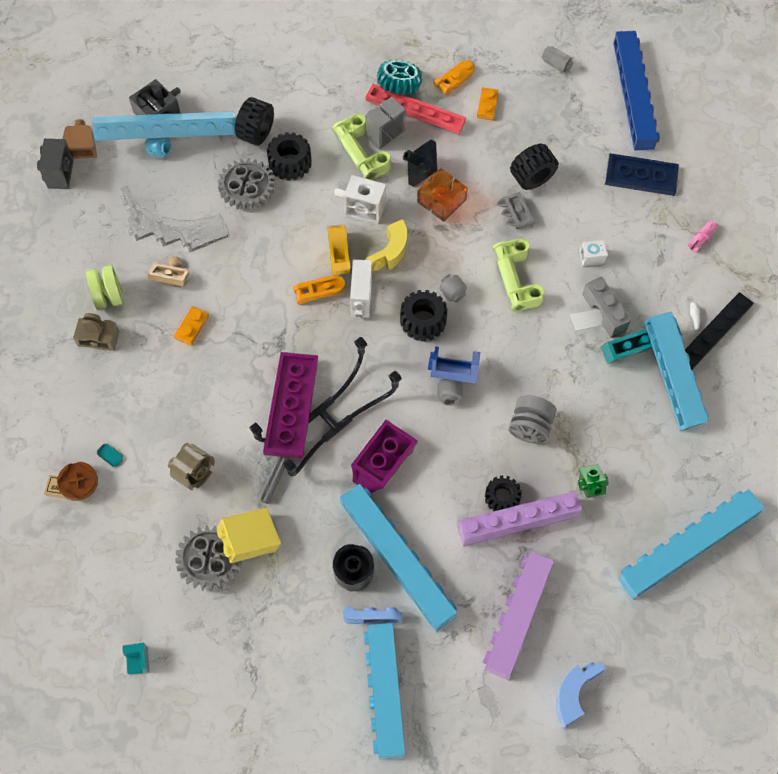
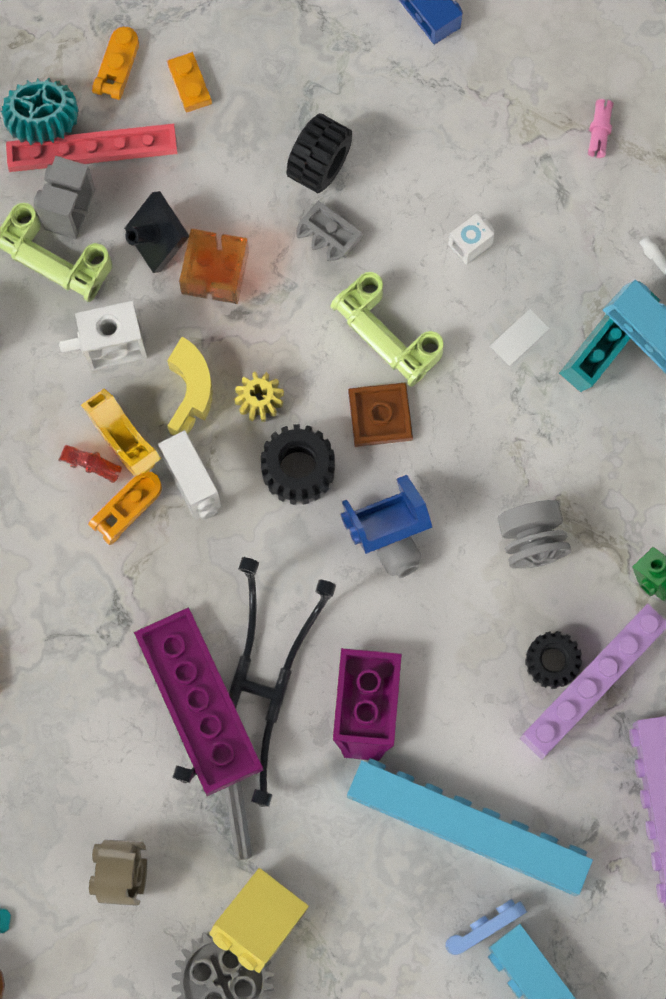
camera: 30 degrees left, 10 degrees up
(314, 256) = (91, 462): none -> clear red piece
(356, 556) = (440, 874): black brick -> none
(425, 271) = (269, 392): none -> light yellow gear
(453, 288) = (312, 399): light grey head -> none
(486, 316) = (380, 414): none -> dark orange tile
(613, 315) = (551, 318): light grey arch -> none
(642, 174) = (466, 78): dark blue tile -> none

